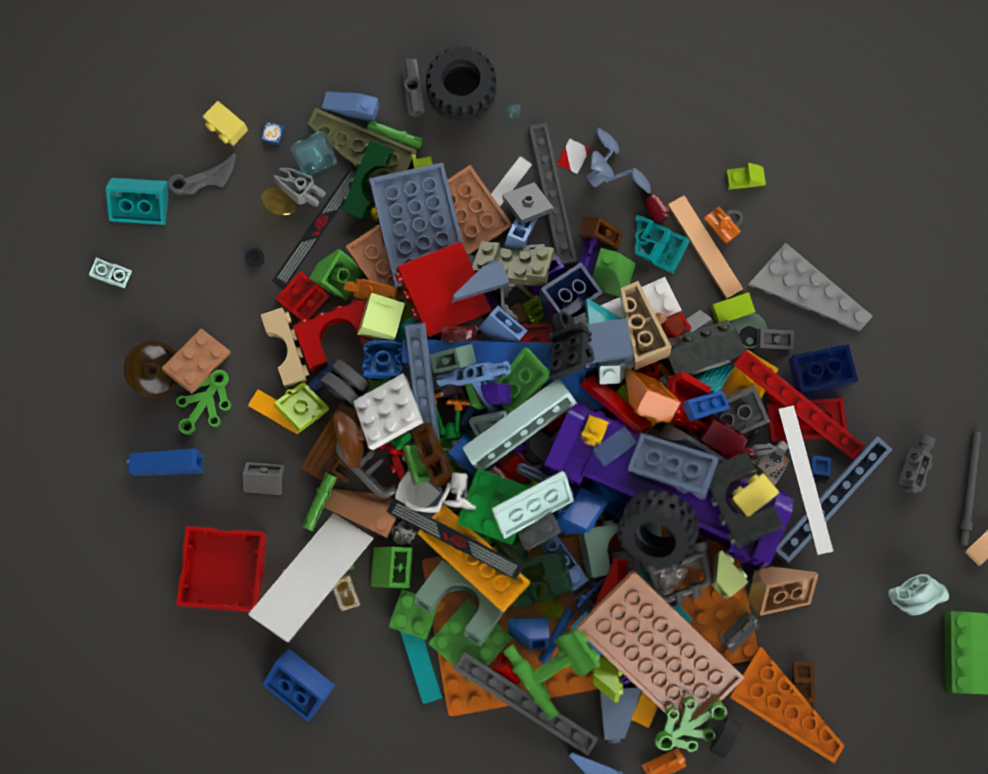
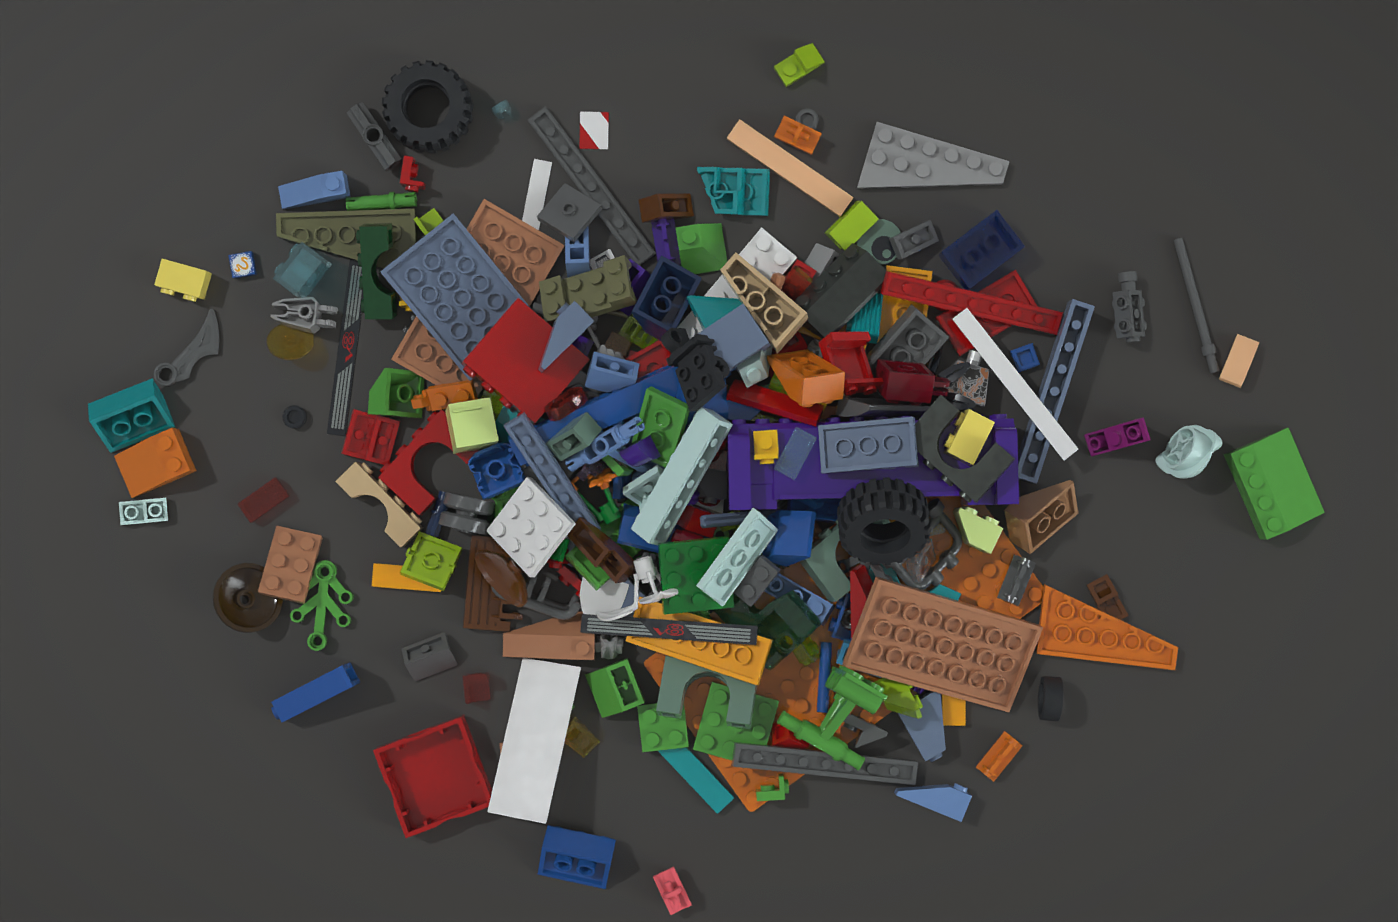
camera: 25 degrees left, 10 degrees up
(137, 241) = (155, 462): none -> orange slope
(201, 305) = (263, 500): none -> clear red plate
(287, 517) = (476, 687): none -> clear red panel
(321, 497) = (502, 646): bright green pin -> none
(359, 747) = (672, 890): none -> coral hips
(424, 123) = (410, 170): none -> red bracket
(471, 705) = (769, 792): none -> bright green bracket
(530, 632) = (796, 687): blue slope -> none
(571, 695) = (868, 731): none -> dark grey slope
(603, 172) = (634, 138): sand blue plant -> none
(656, 208) = (716, 149): dark red brick -> none
(688, 726) = (1007, 705): bright green plant -> none
(705, 405) = (873, 358): blue plate -> none
(867, 558) = (1117, 436): none -> magenta slope

